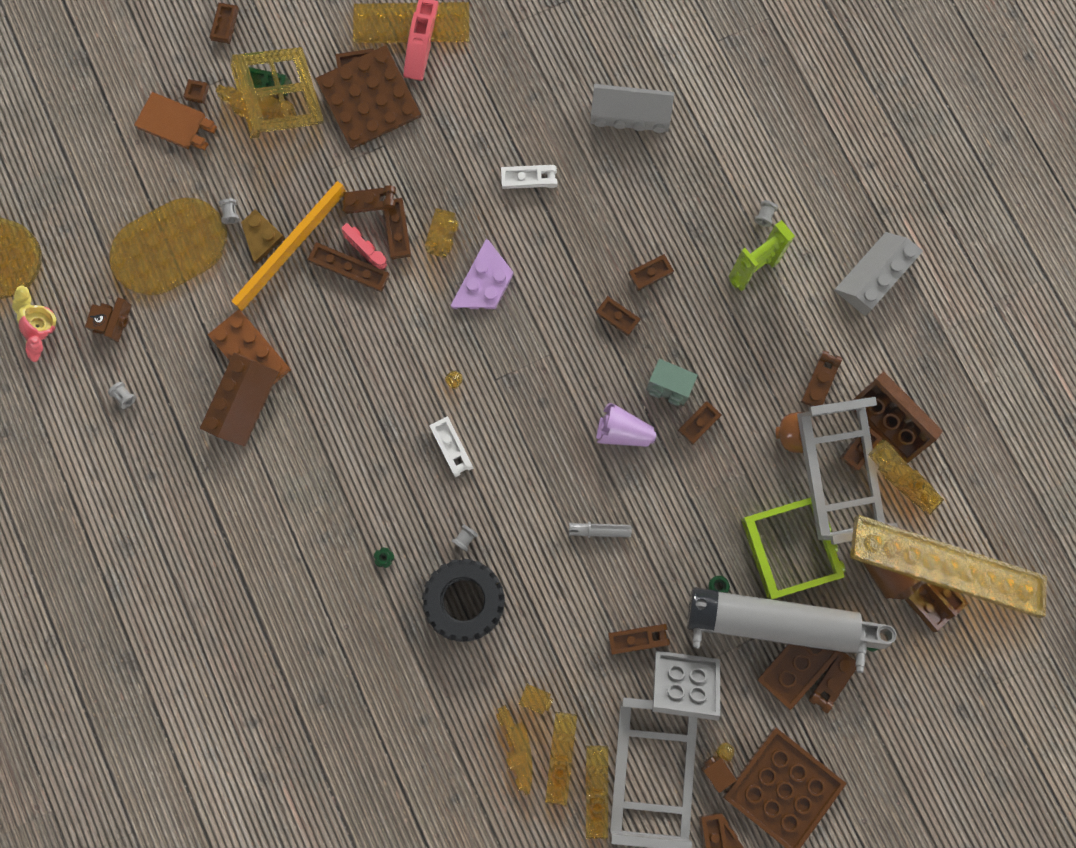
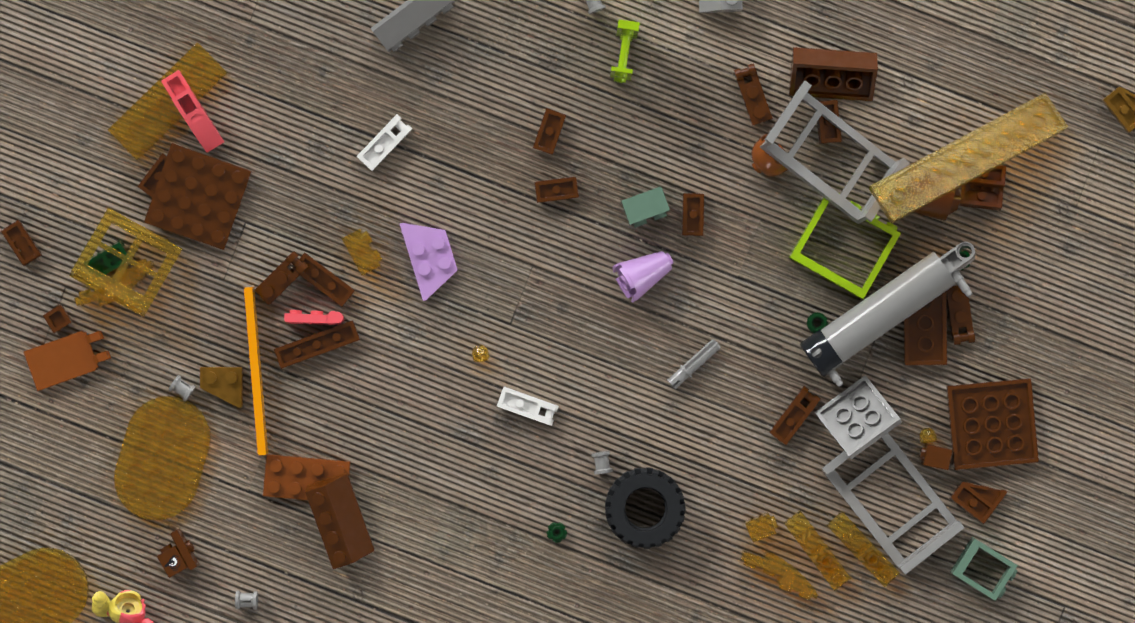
camera: 50 degrees left, 10 degrees up
(904, 478) = (880, 114): clear yellow slope -> none

